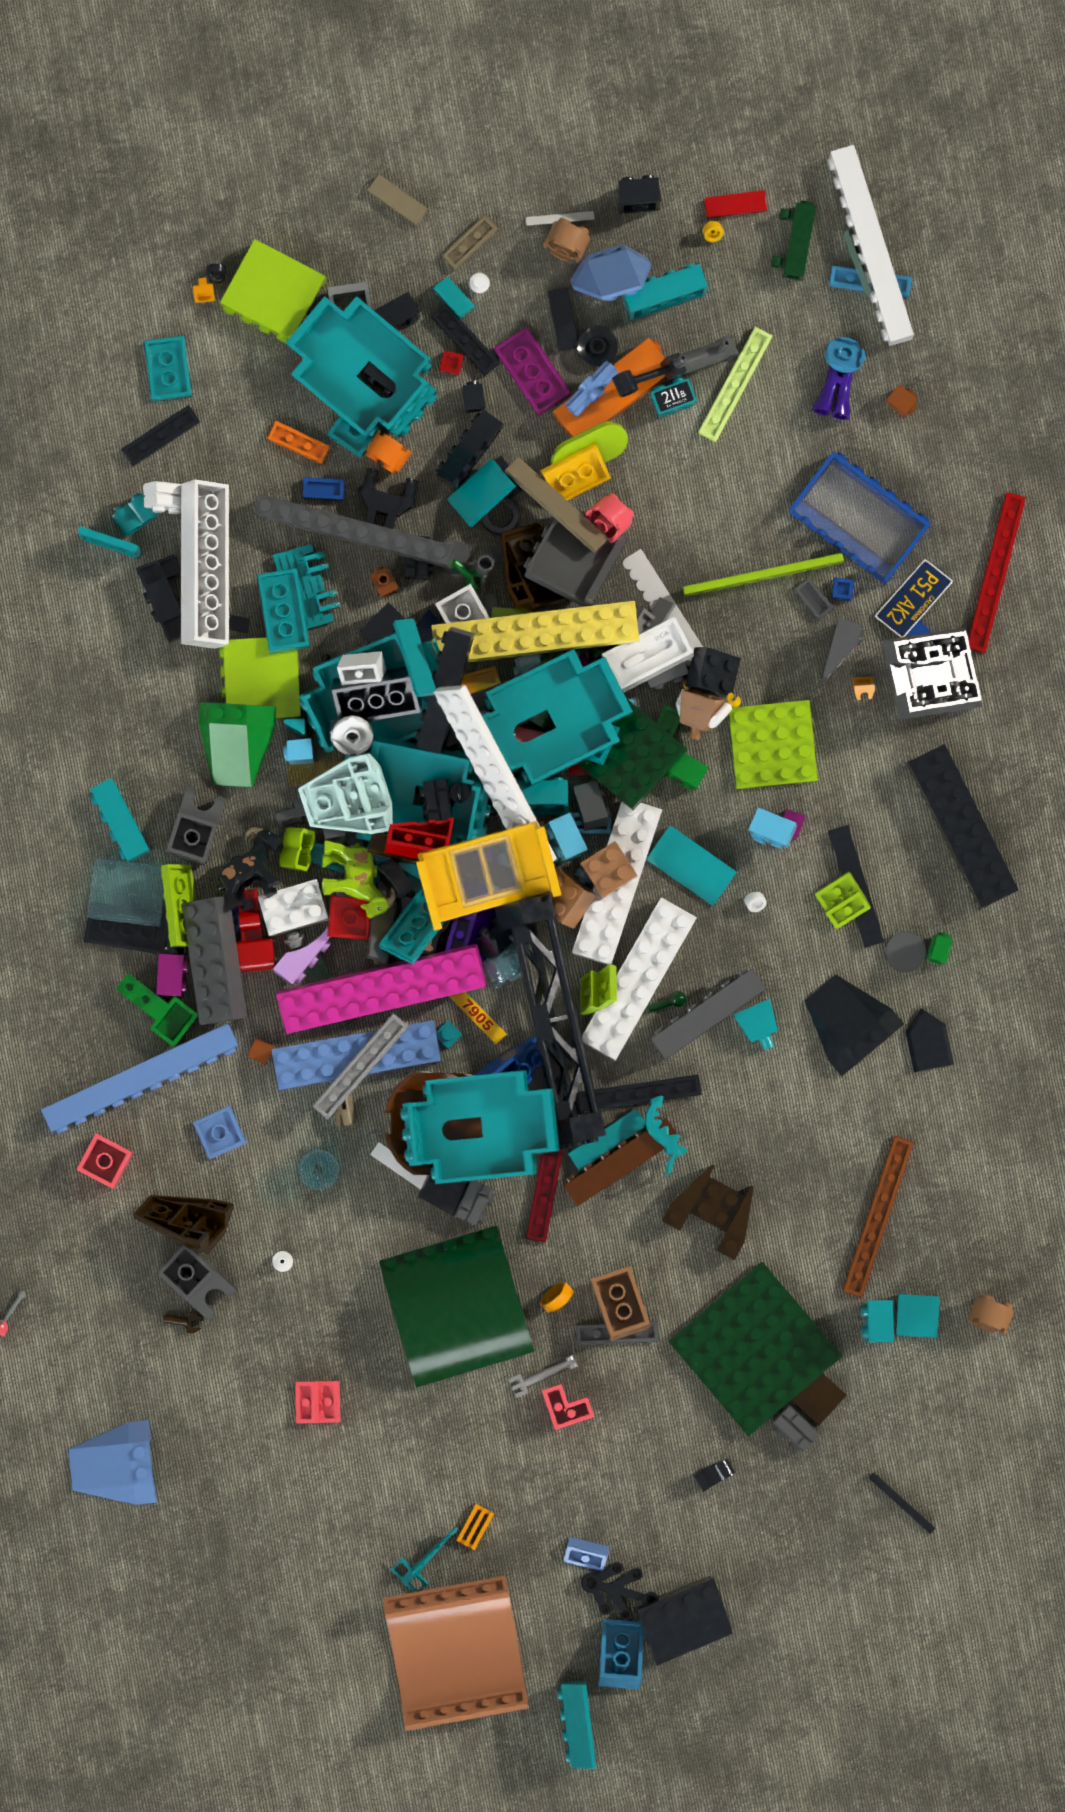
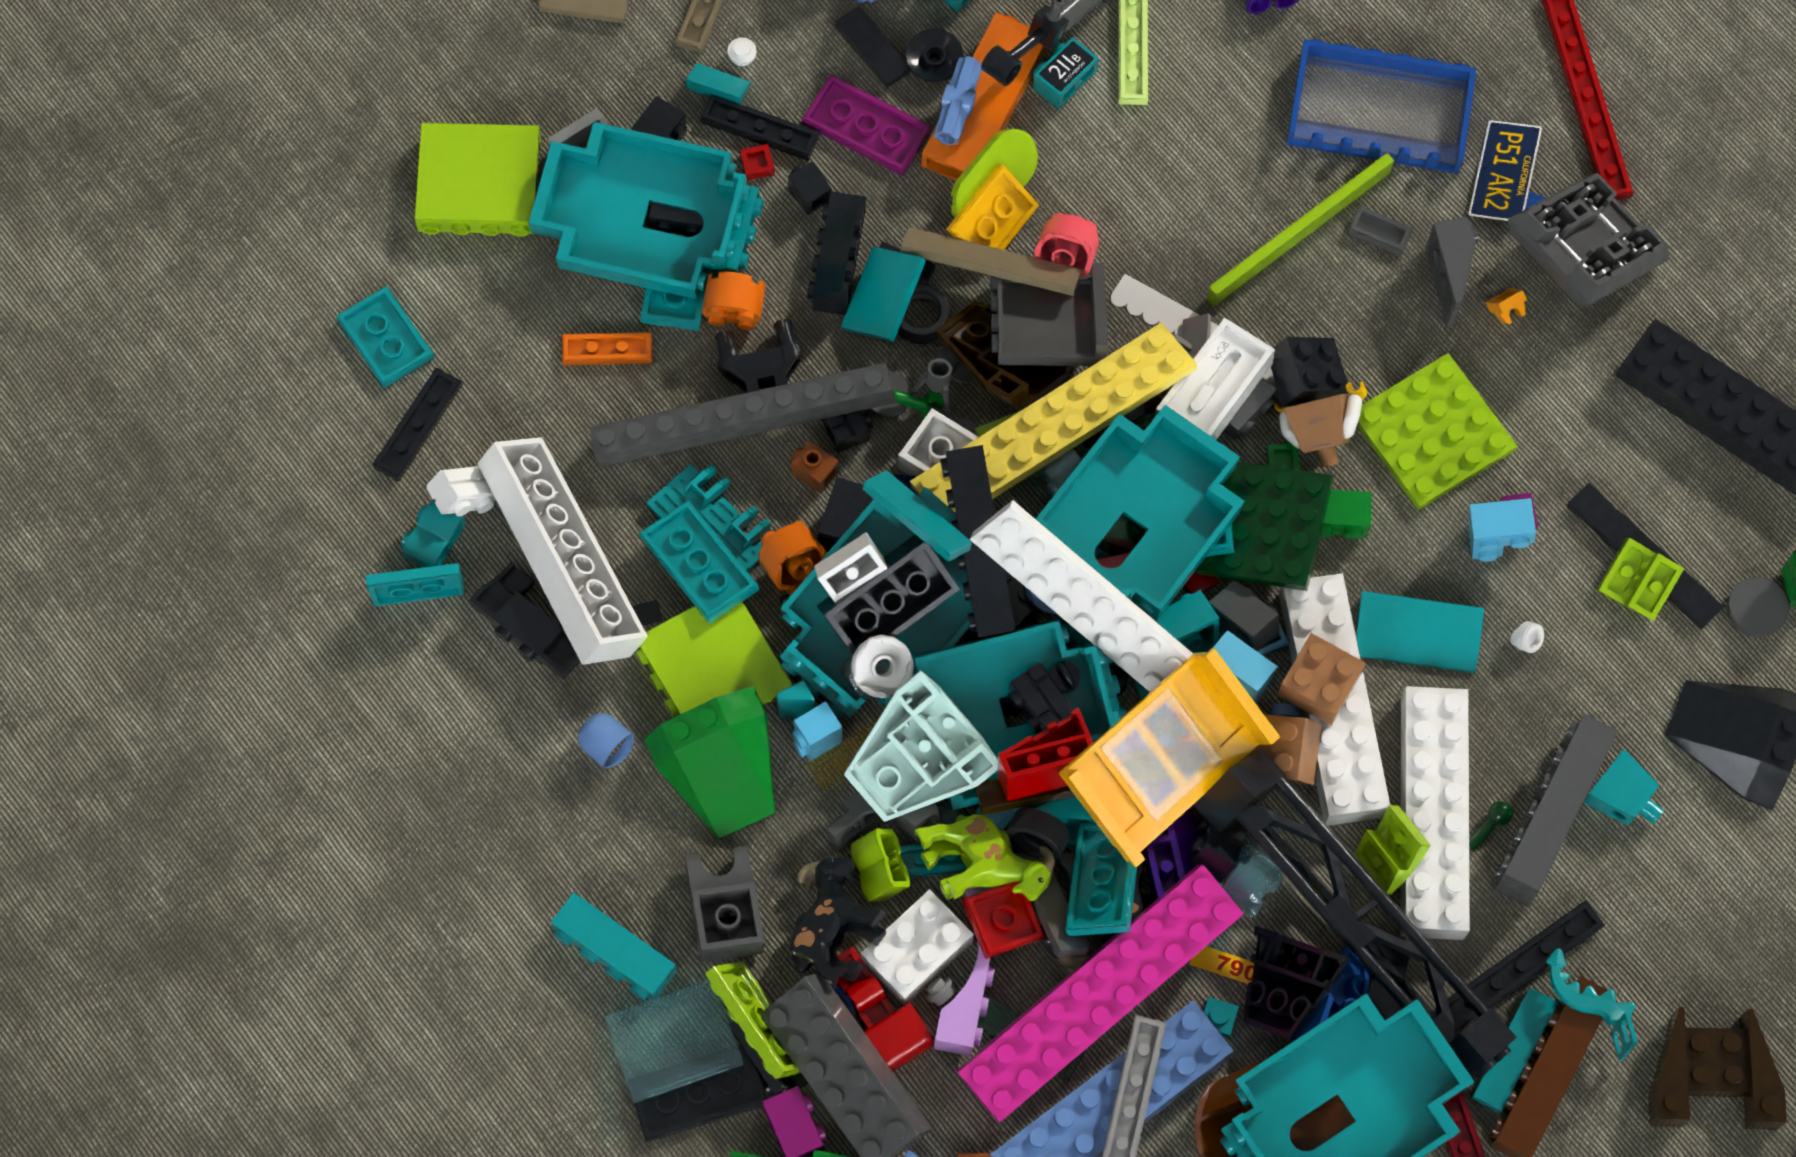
camera: 30 degrees left, 15 degrees down
(175, 693) = (600, 737): none -> medium blue helmet
(203, 292) = (386, 219): light orange tile -> none
(216, 270) = (390, 186): black tile -> none
(323, 489) = (670, 390): blue tile -> none
(339, 635) = (790, 555): none -> orange brick
(495, 1037) = (1288, 983): none -> black wedge
(842, 589) = (1409, 202): blue tile -> none

